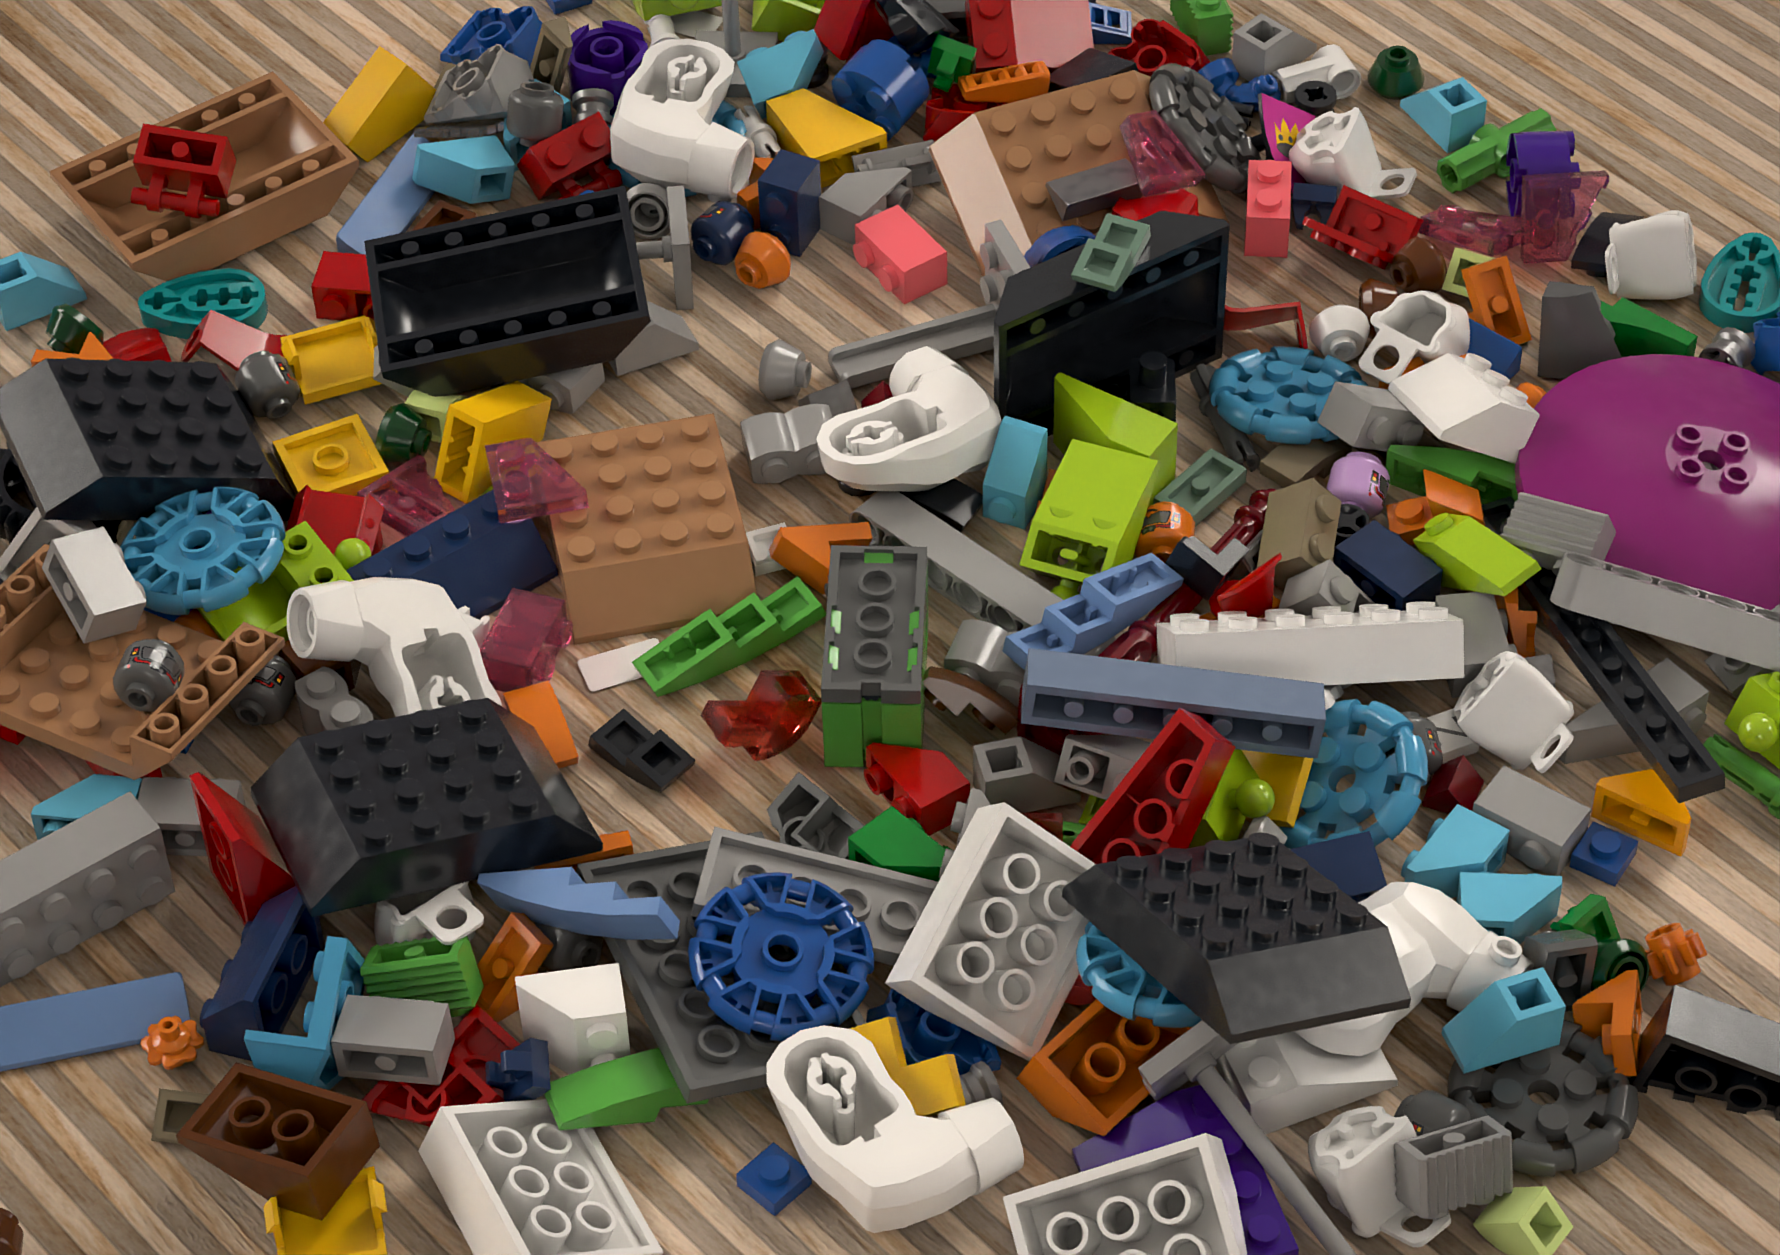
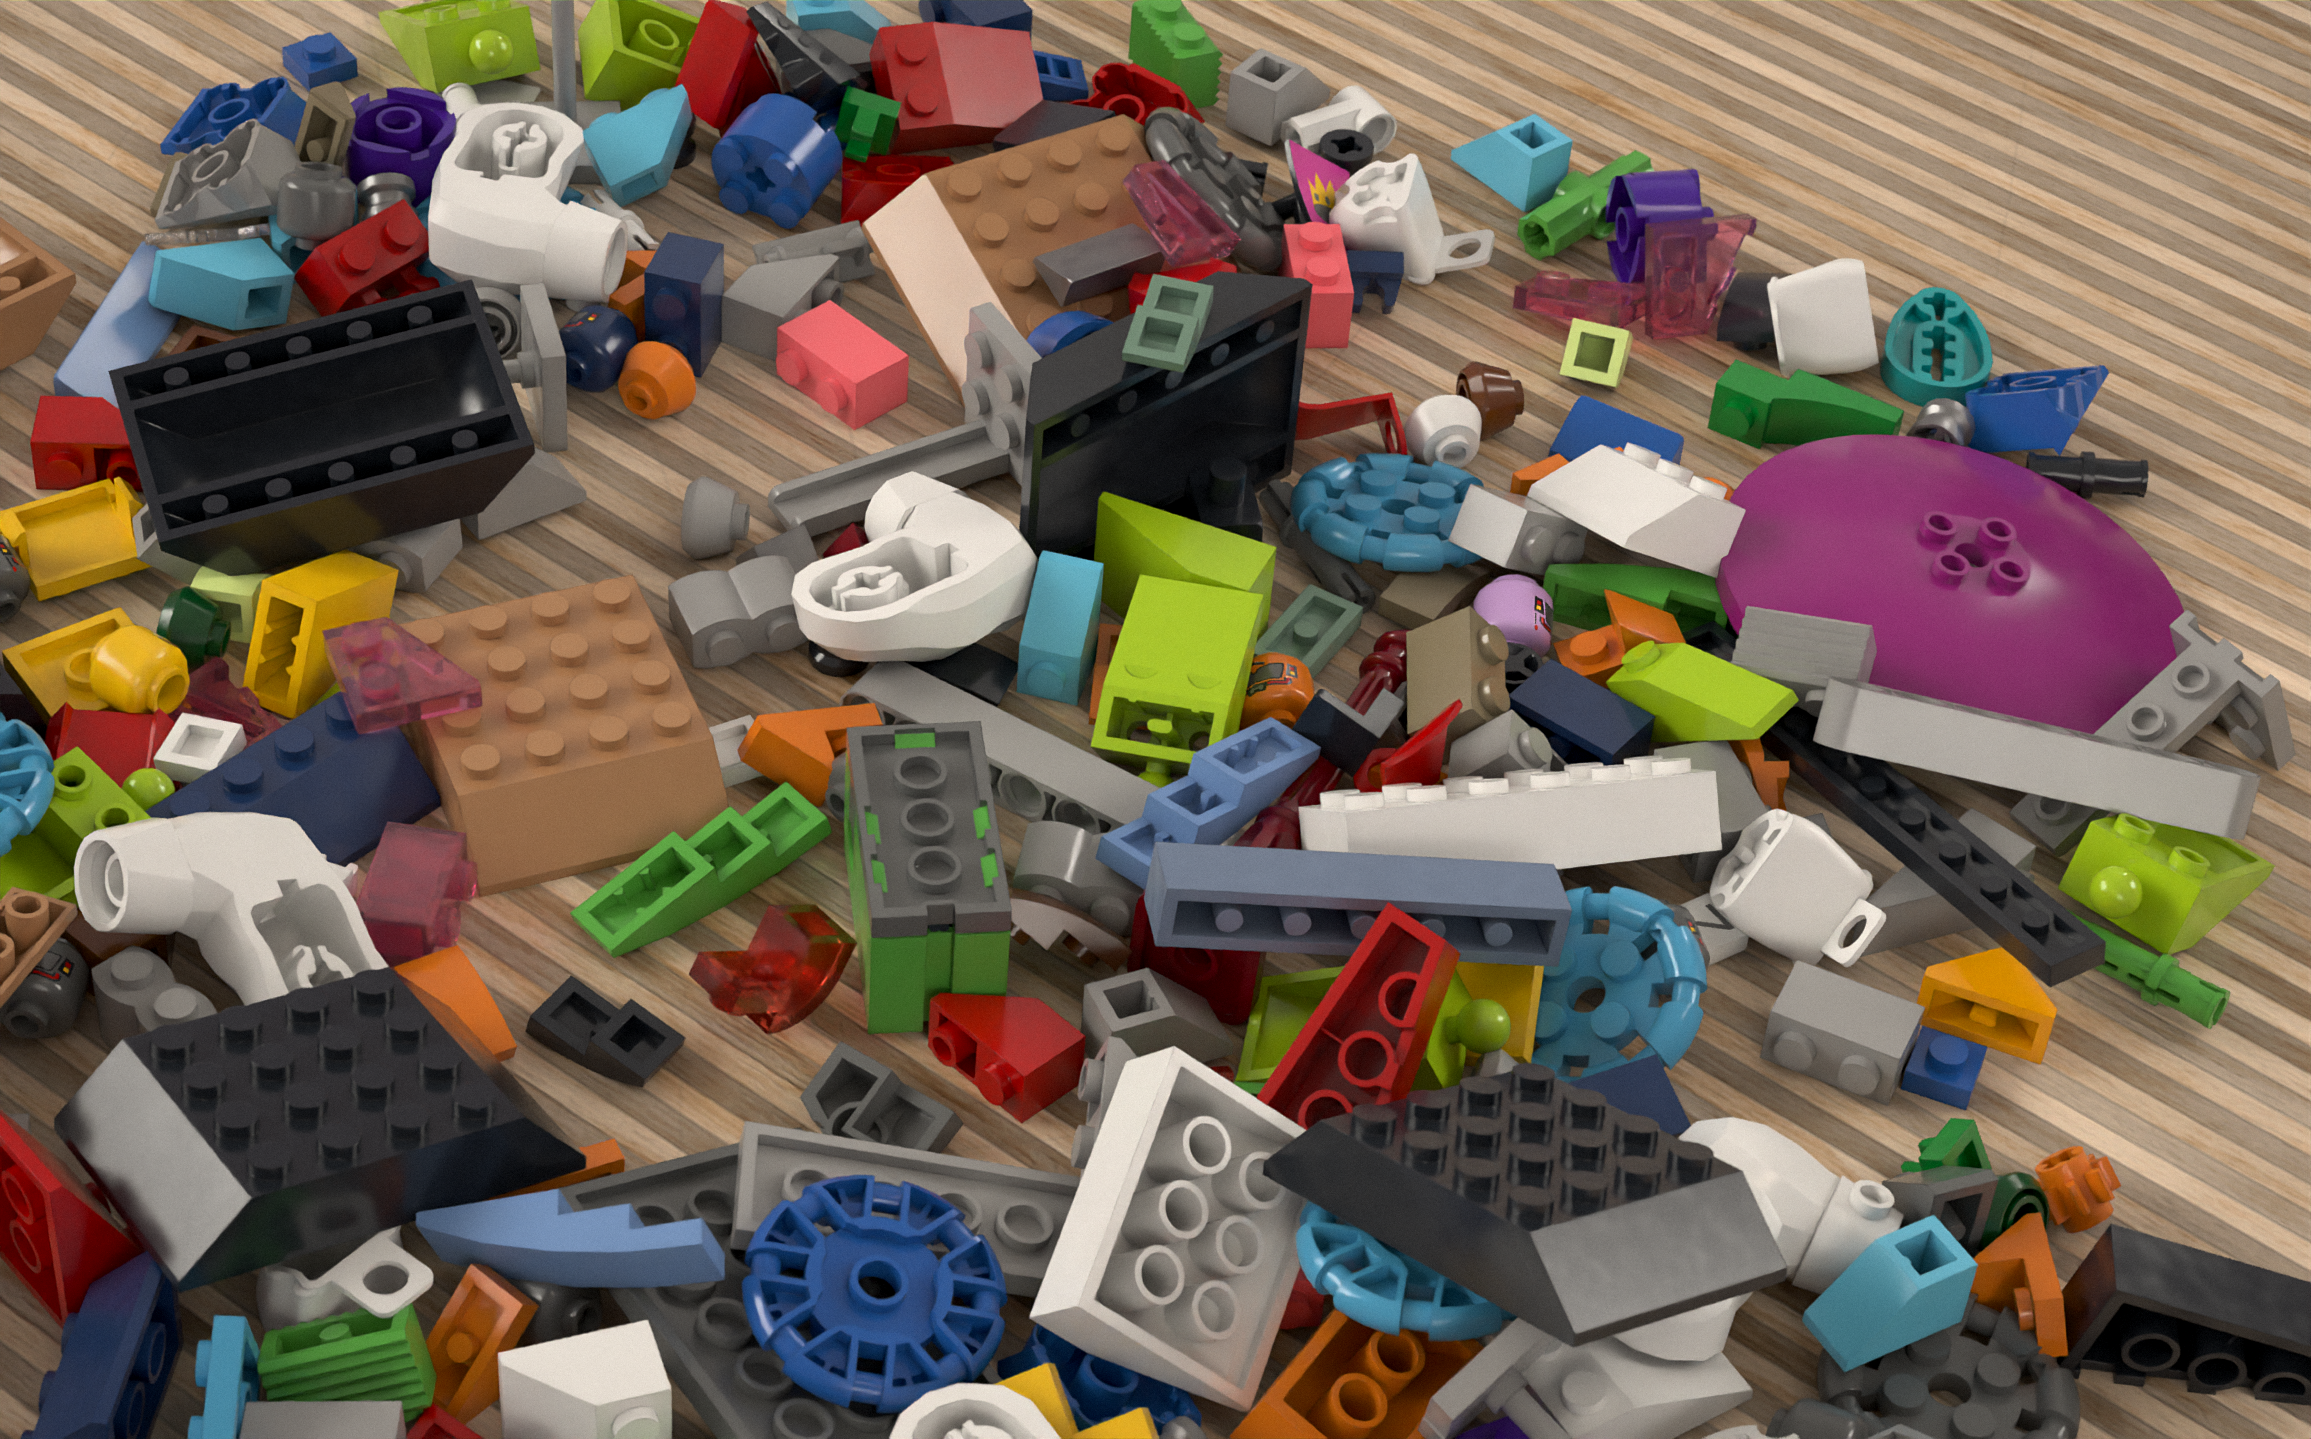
camera: 15 degrees left, 5 degrees down
(359, 465) = (138, 671): none -> yellow head
(380, 105) = (94, 204): yellow slope -> none
(392, 523) = (198, 747): none -> white tile
(613, 666) = (542, 921): white sticker -> none
(822, 132) = (708, 209): yellow slope -> none
(897, 845) = (1002, 1129): green slope -> none
(1006, 83) = (942, 145): orange slope -> none
(1097, 762) = (1266, 996): light grey slope -> none
(1224, 76) = (1263, 147): blue arm -> none
(1365, 228) = (1452, 301): red bracket -> none
(1396, 73) = (1438, 119): dark green cone -> none
(1415, 327) = (1545, 418): white piece -> none
(1418, 266) = (1527, 346): reddish brown cone -> none
(1452, 785) = (1732, 997): dark red slope -> none
(1454, 846) = (1761, 1077): medium azure slope -> none
(1496, 299) = (1636, 377): orange slope -> none
(1510, 902) = (1847, 1135): medium azure slope -> none
(1573, 331) = (1748, 413): dark grey slope -> none

